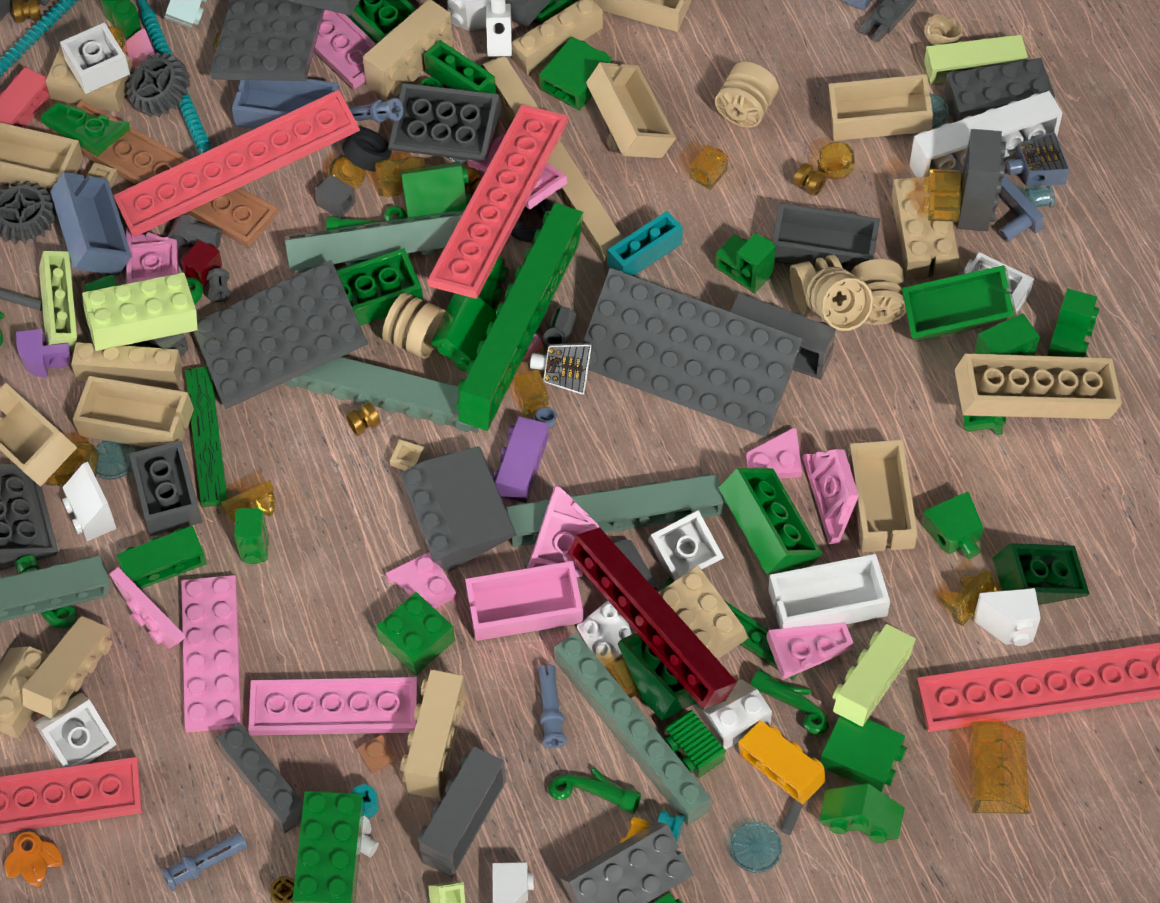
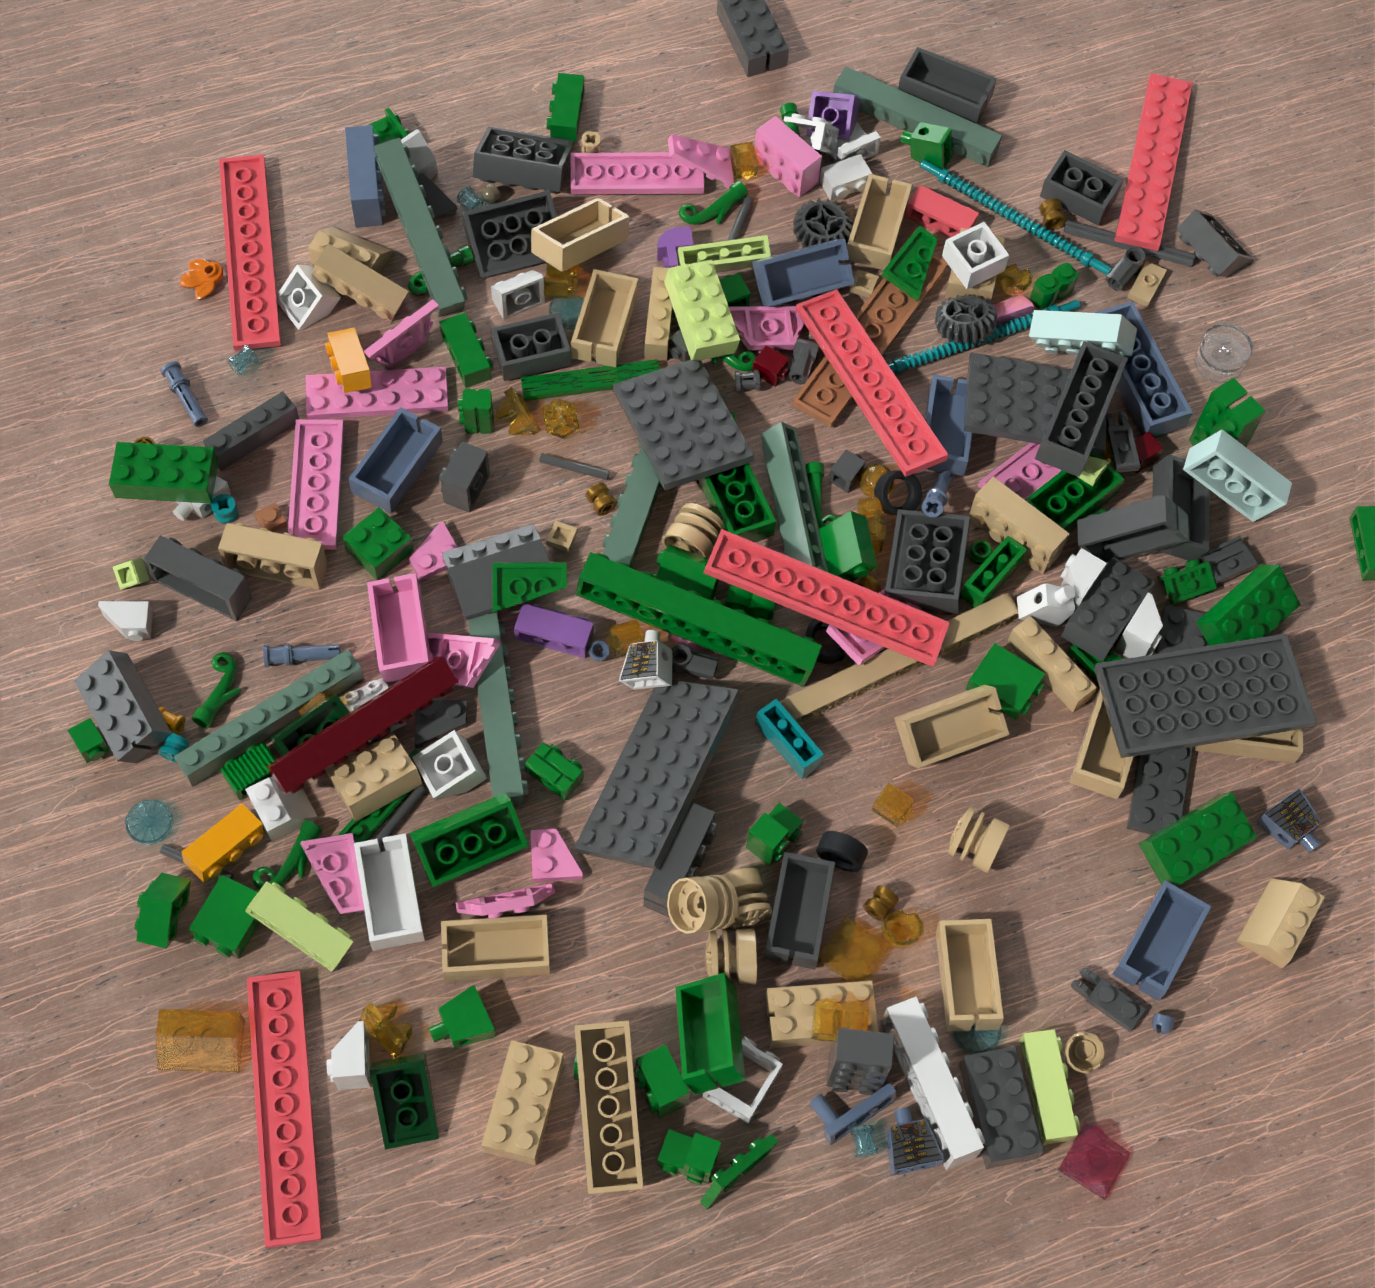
camera: 85 degrees right, 5 degrees up
(159, 799) = (242, 360): none -> clear light blue bush
(174, 673) = (348, 360): none -> light orange brick
(268, 458) = (560, 418): none -> clear yellow brick
(310, 618) = (395, 460): none -> sand blue piece
(317, 449) = (574, 466): none -> dark grey bar
(336, 544) = (464, 476): none -> dark grey brick
(476, 471) = (525, 582): none -> green wing
(684, 452) = (555, 770): none -> green brick
(743, 603) = (401, 814): none -> dark grey bar
(763, 203) = (842, 849): none -> black tyre
(859, 199) = (853, 951): none -> clear yellow plate
(1034, 469) = (522, 1102): none -> tan brick
(1038, 33) = (1094, 1160): none -> clear pink slope
(1065, 277) = (740, 1164): none -> green wing

